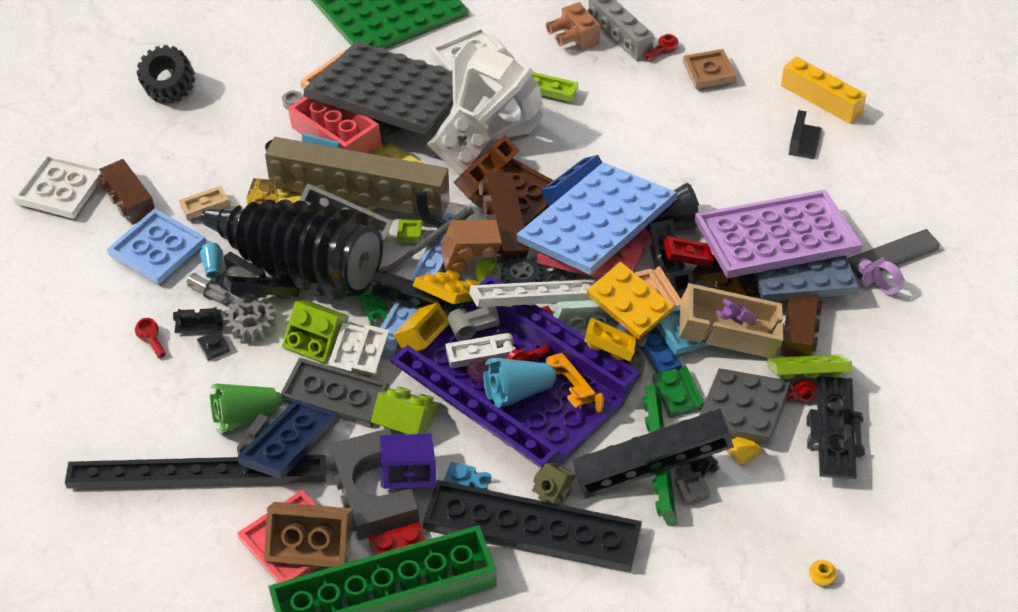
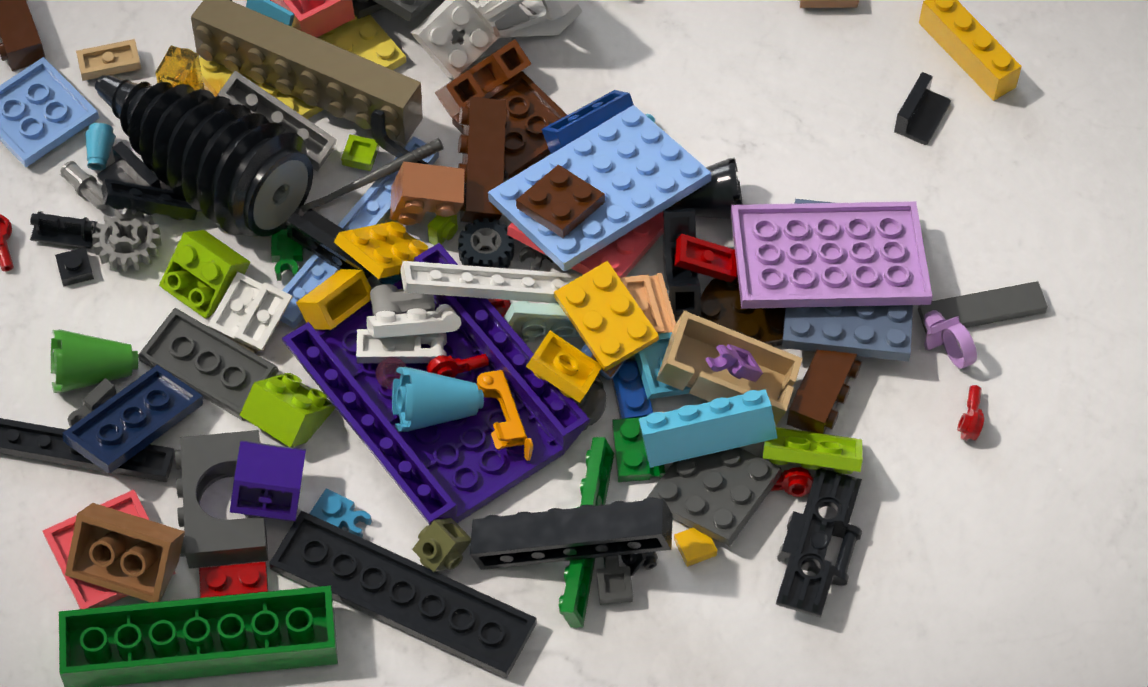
camera: 10 degrees right, 10 degrees up
(488, 330) = (414, 322): none -> white plate
(574, 227) = (560, 201): none -> reddish brown plate
(730, 361) = (708, 427): none -> medium azure brick
(915, 327) = (972, 423): none -> red plate

